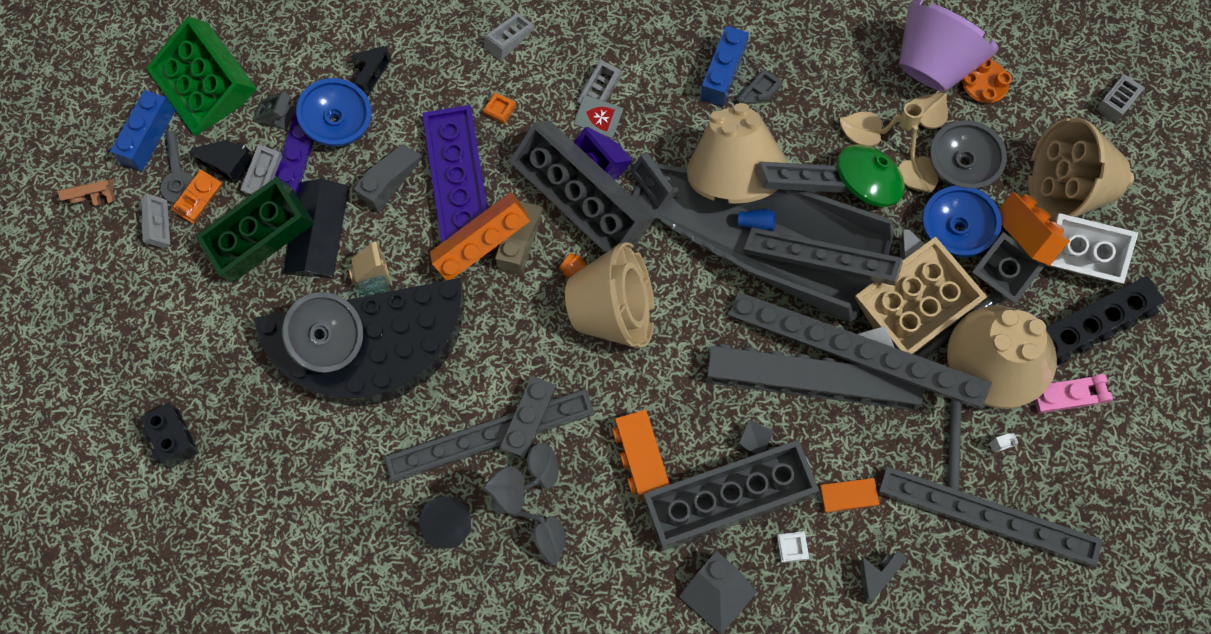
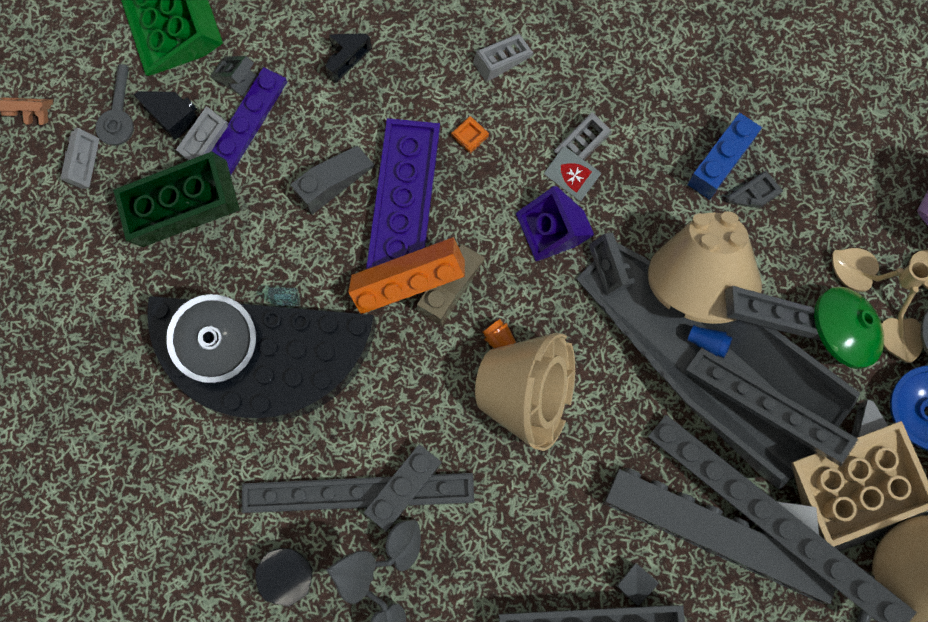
camera: 15 degrees right, 5 degrees up
(143, 130) = (94, 56): blue brick -> none
(168, 435) = (29, 396): black brick -> none
(197, 196) = (130, 143): orange plate -> none
(317, 248) = (237, 235): black slope -> none
(330, 100) = (298, 77): blue dish -> none
(368, 264) = (284, 272): tan slope -> none
(580, 187) = (530, 253): dark grey brick -> none
(640, 453) = (509, 565): orange brick -> none

